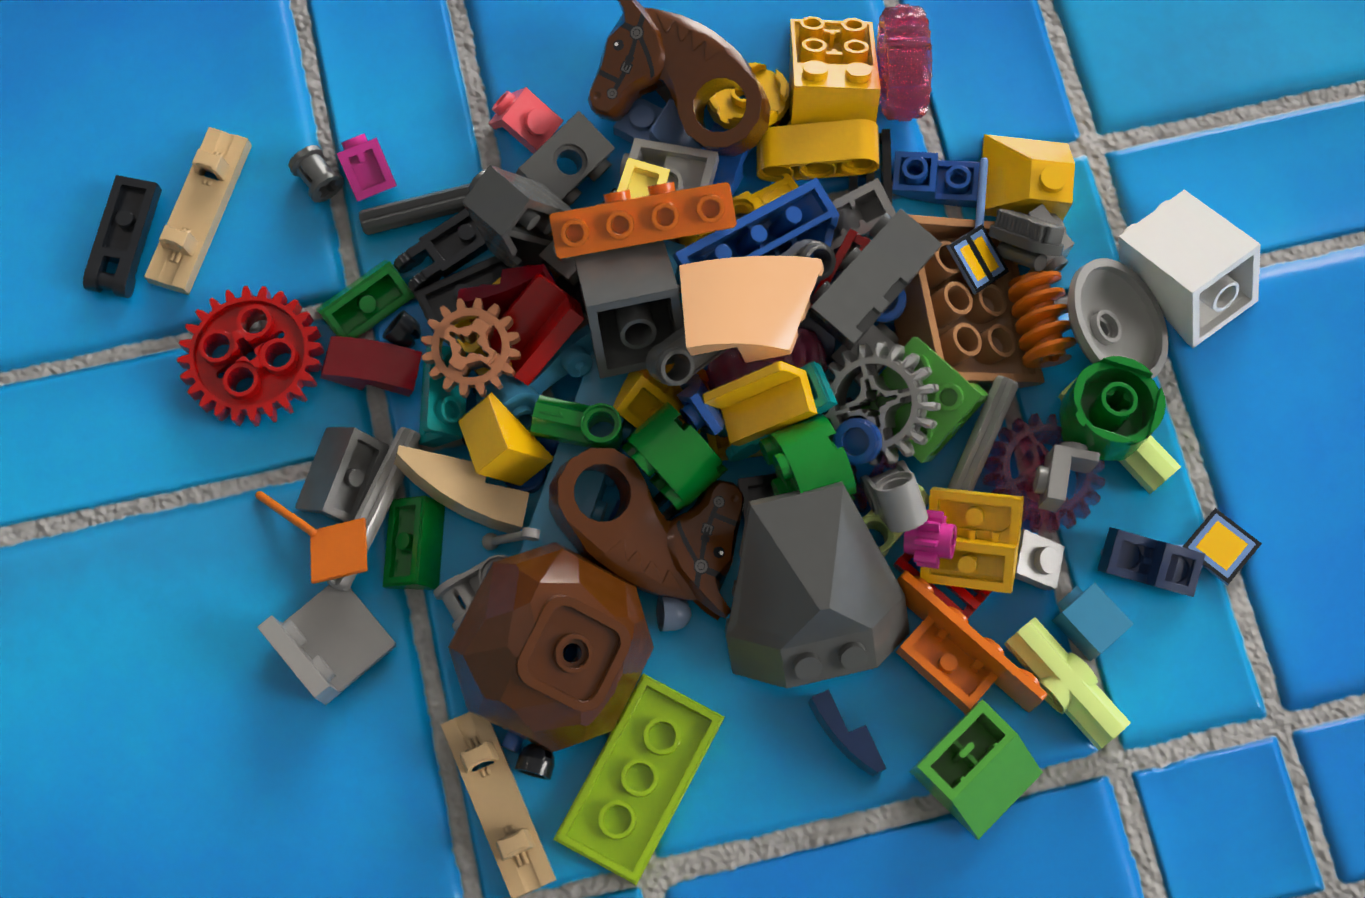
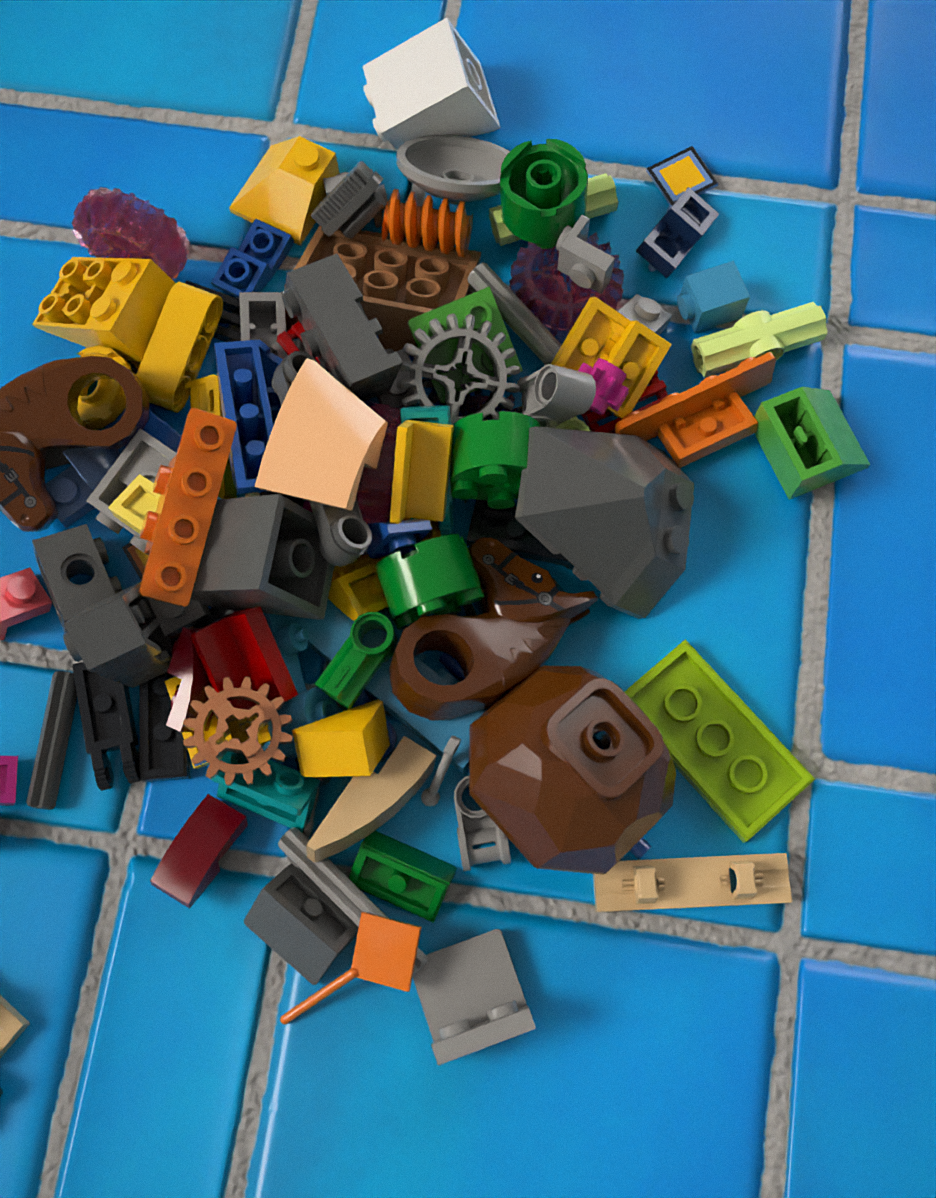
camera: 65 degrees left, 0 degrees up
(272, 385) = (88, 986): red gear -> none
(366, 301) = (125, 834): green slope -> none
(402, 330) = (175, 806): black hinge -> none
(535, 762) = (667, 831): black hinge -> none
(672, 613) = (570, 650): sand blue hinge -> none
(855, 745) = (750, 533): dark blue slope -> none
(860, 440) = (490, 399): blue tile -> none
(975, 251) = (352, 250): piece -> none

